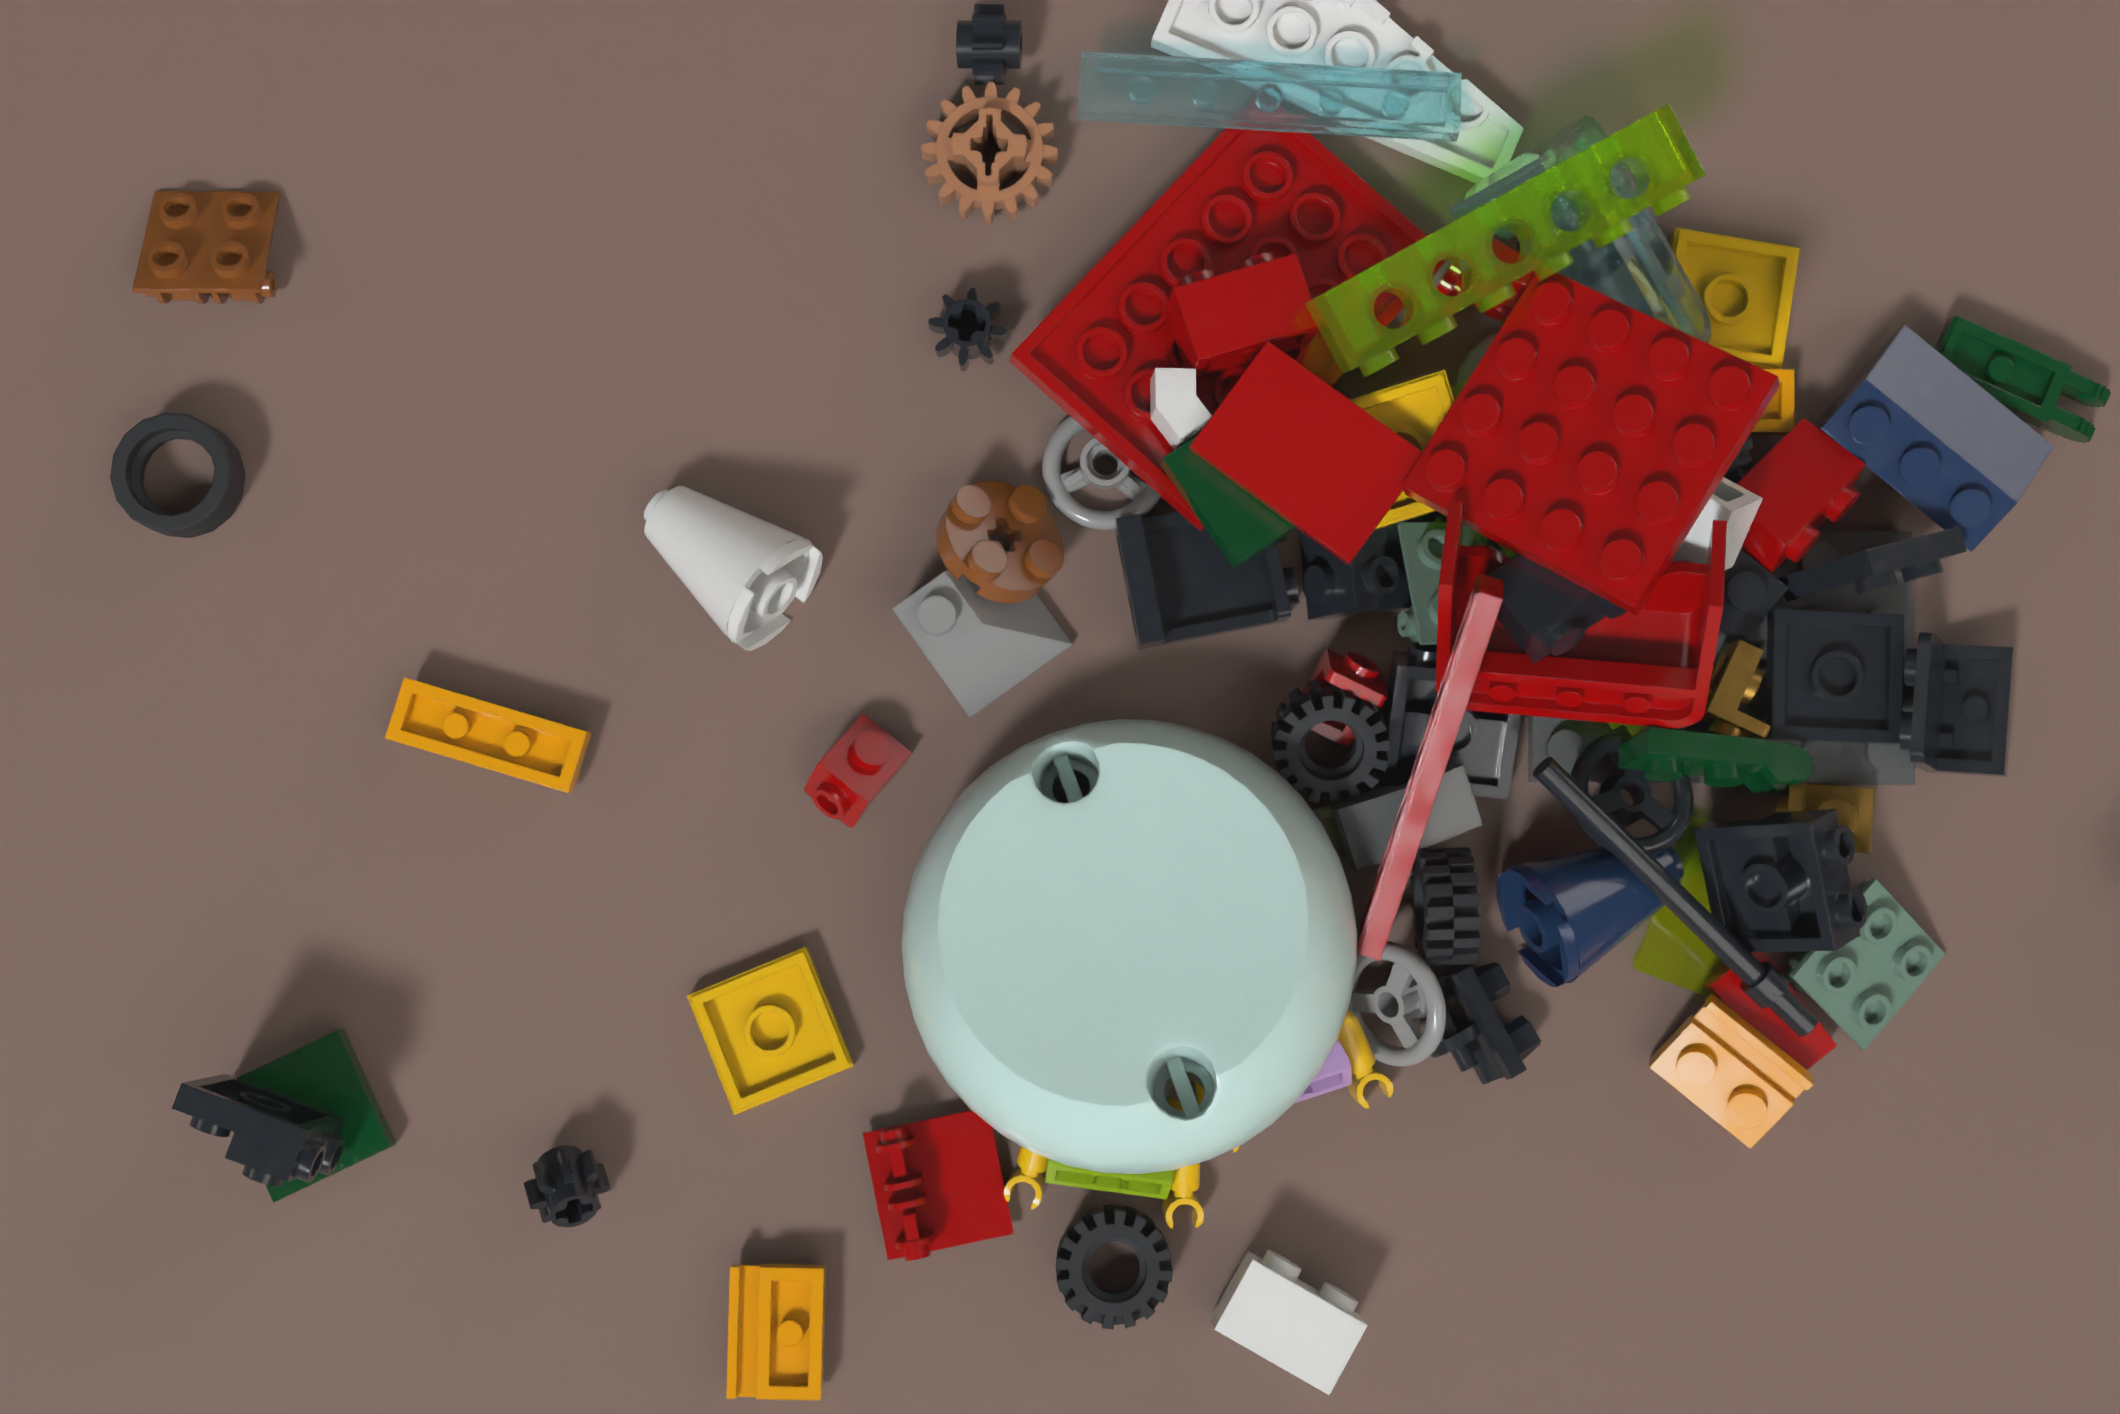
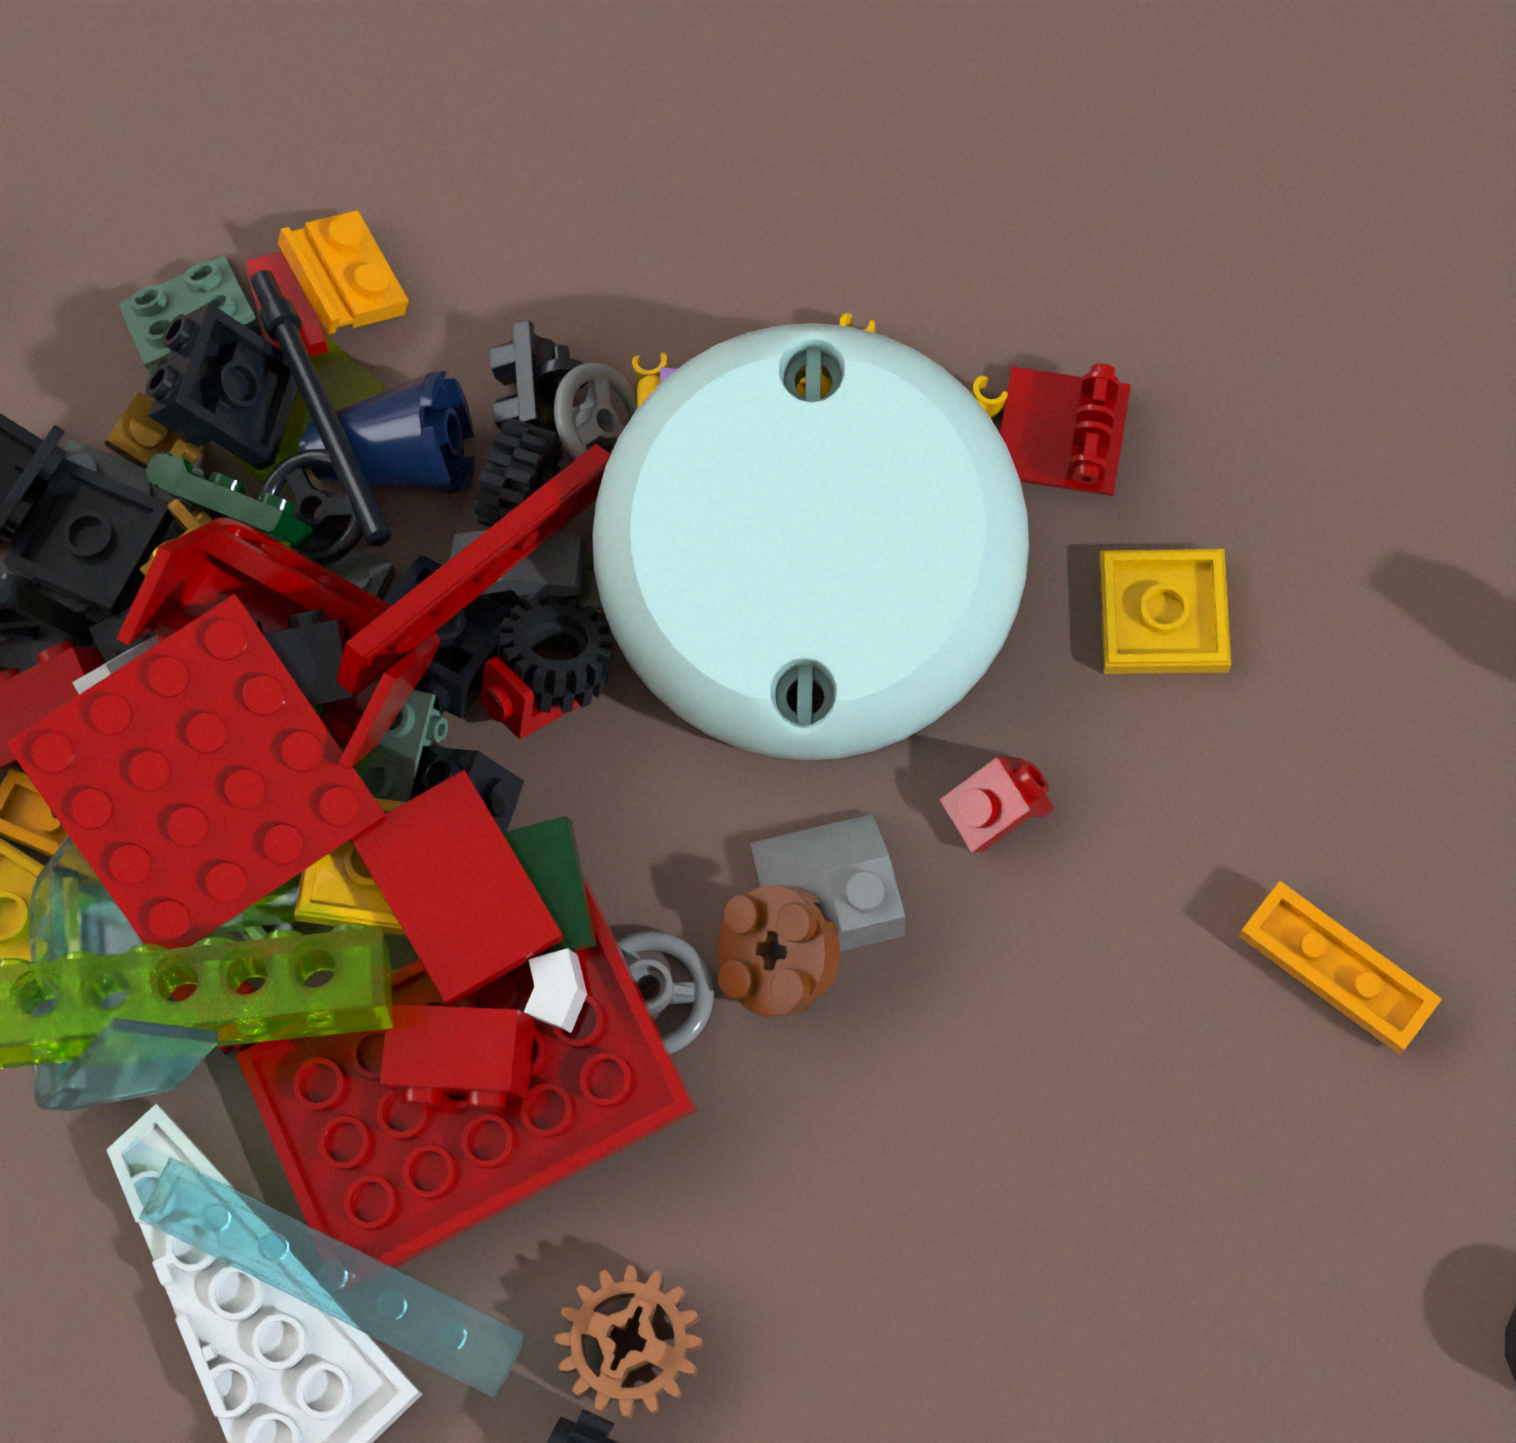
camera: 150 degrees left, 15 degrees down
(566, 1186) = (1399, 539): black gear -> none
(732, 562) = (1045, 1036): white cone -> none
(776, 1331) = (1251, 361): light orange plate -> none
(955, 318) = (728, 1190): black gear -> none
(1123, 1305) = (936, 278): black tyre -> none
(1188, 589) = (624, 849): black panel -> none
(1289, 1320) = (803, 210): white brick -> none

